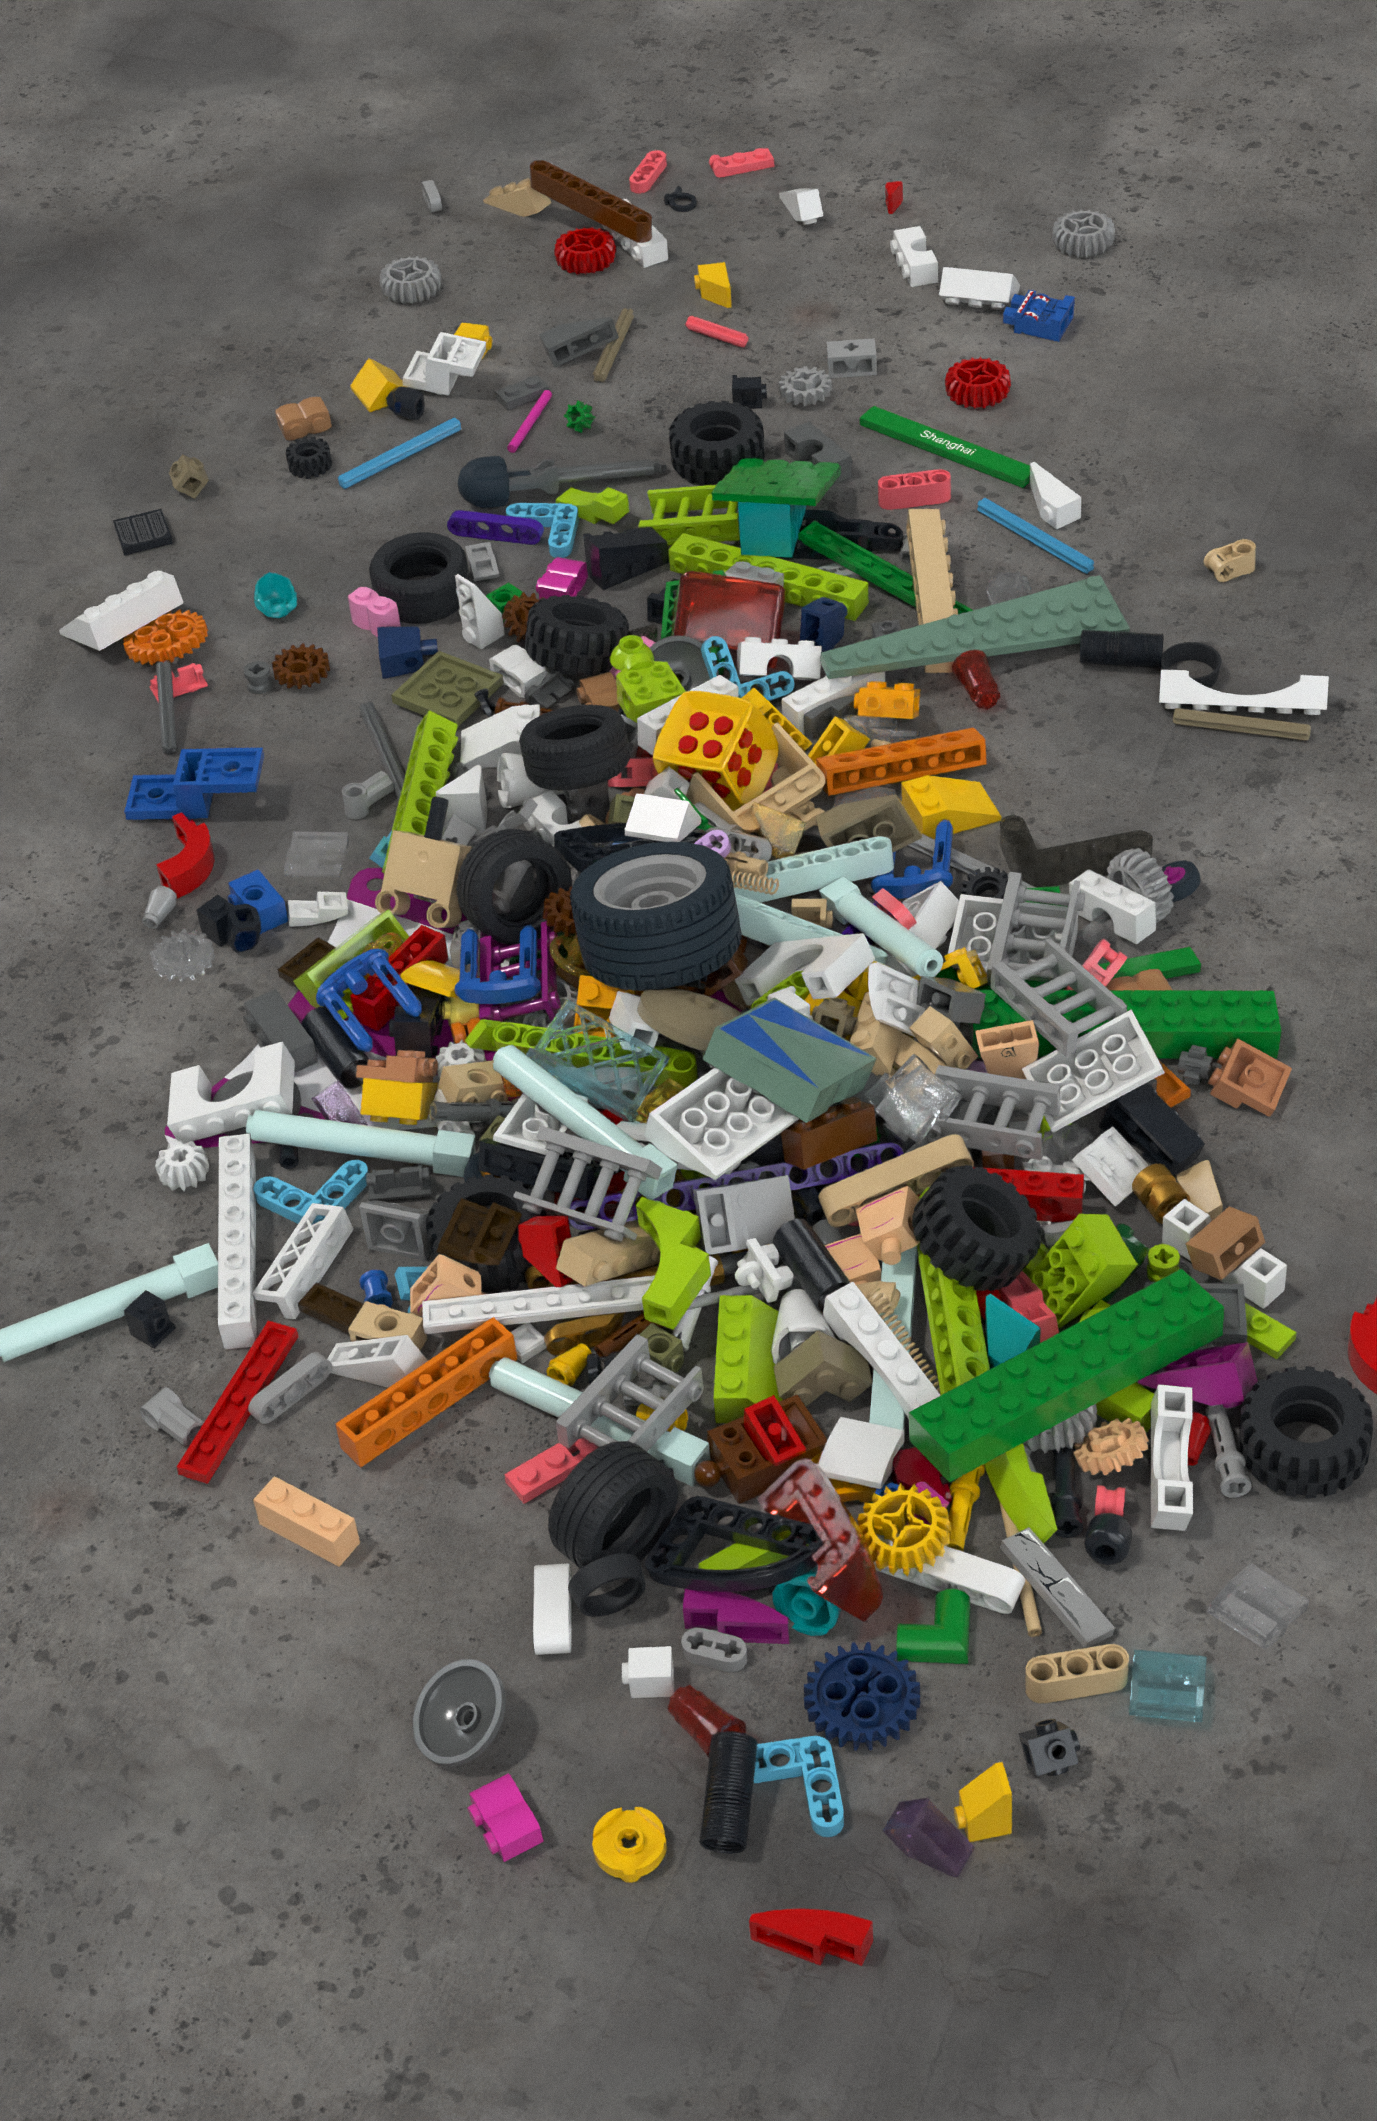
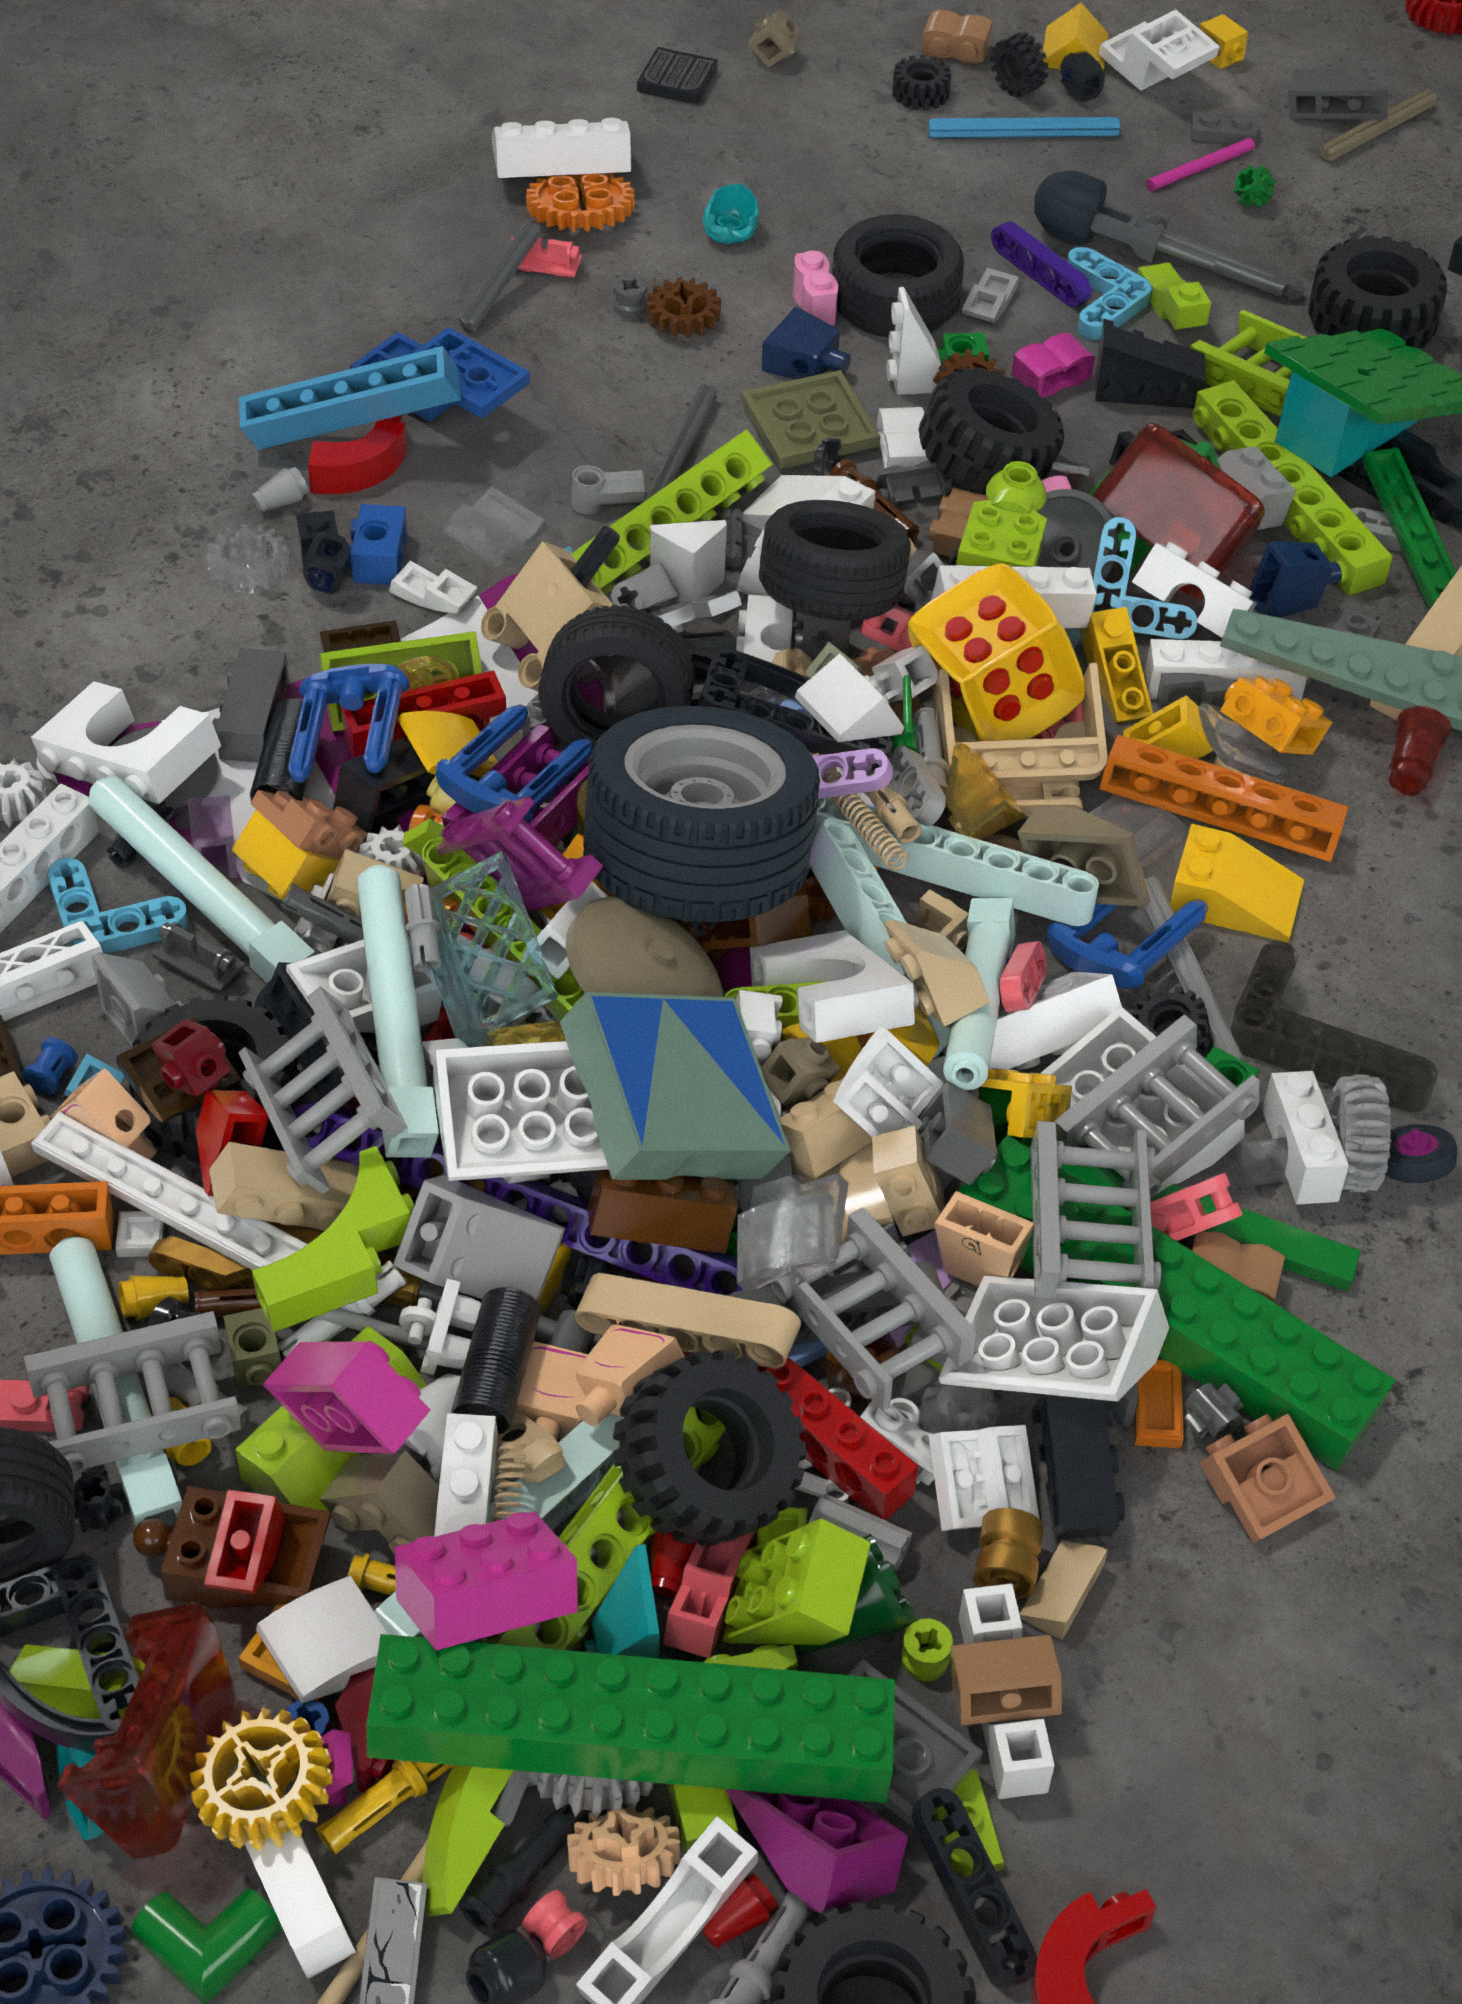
camera: 30 degrees right, 5 degrees up
(162, 824) = (350, 398): none -> dark azure brick
(368, 404) = (1019, 64): none -> black tyre
(495, 1211) = (191, 1058): none -> dark red brick
(558, 1066) = (422, 927): none -> light grey axle
(604, 1003) = (537, 866): none -> magenta fence
(767, 1319) = (348, 1396): none -> dark pink brick
(851, 1411) = (373, 1575): none -> yellow pin
(879, 923) = (943, 976): none -> tan slope
(936, 1352) = (485, 1579): none -> dark pink brick
(1299, 1343) = (966, 1890): none -> black beam

